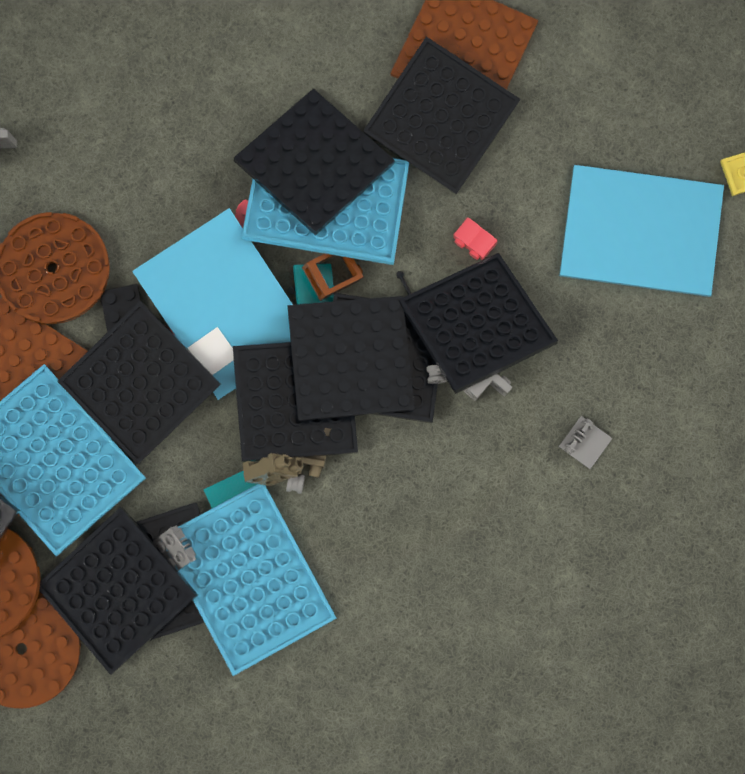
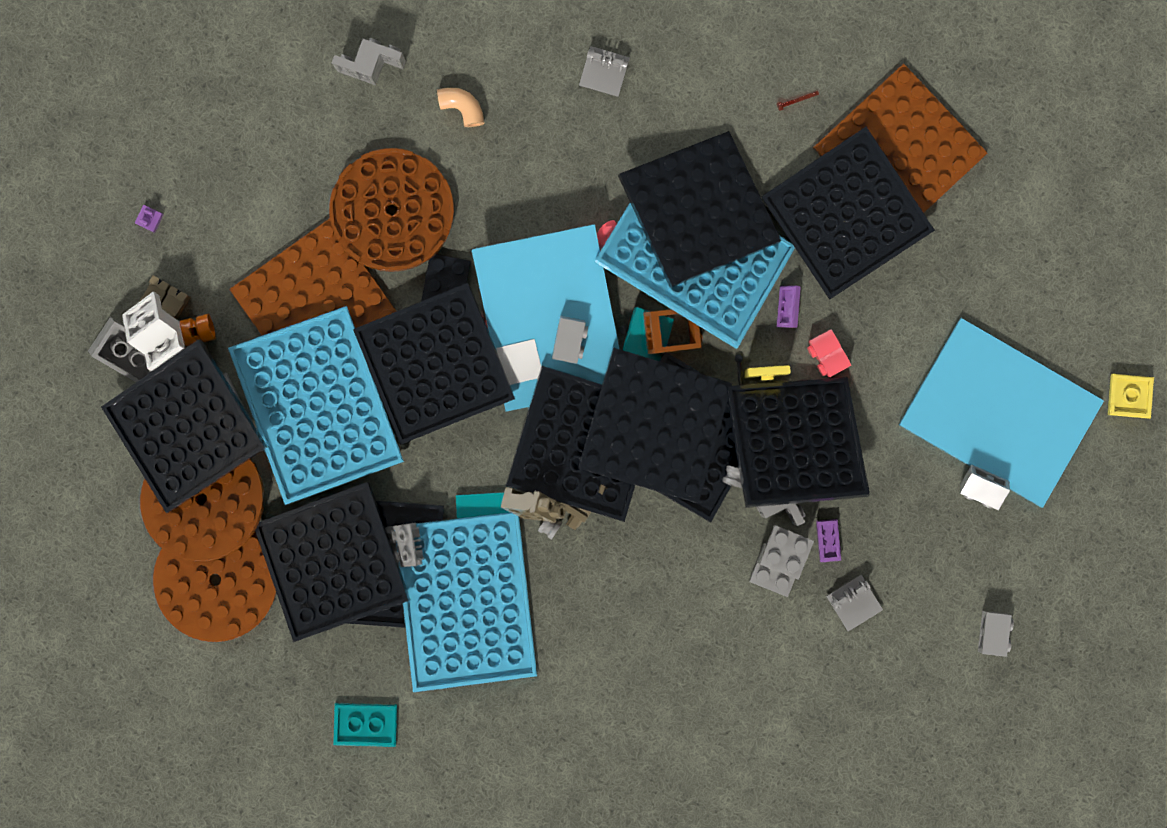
camera: 15 degrees right, 5 degrees up
(78, 153) = (464, 102): none -> light nougat cylinder
(188, 81) = (604, 71): none -> light grey hinge
(203, 723) = (365, 724): none -> teal tile
(247, 315) = (569, 339): none -> light grey brick
(349, 50) = (780, 105): none -> clear red piece
(424, 213) = (788, 306): none -> medium lavender plate
(428, 274) = (767, 373): none -> light yellow plate
(507, 430) = (781, 561): none -> light grey bracket
(540, 397) = (828, 540): none -> medium lavender plate
(654, 298) = (984, 487): none -> brick
(717, 418) = (995, 633): none -> light grey brick

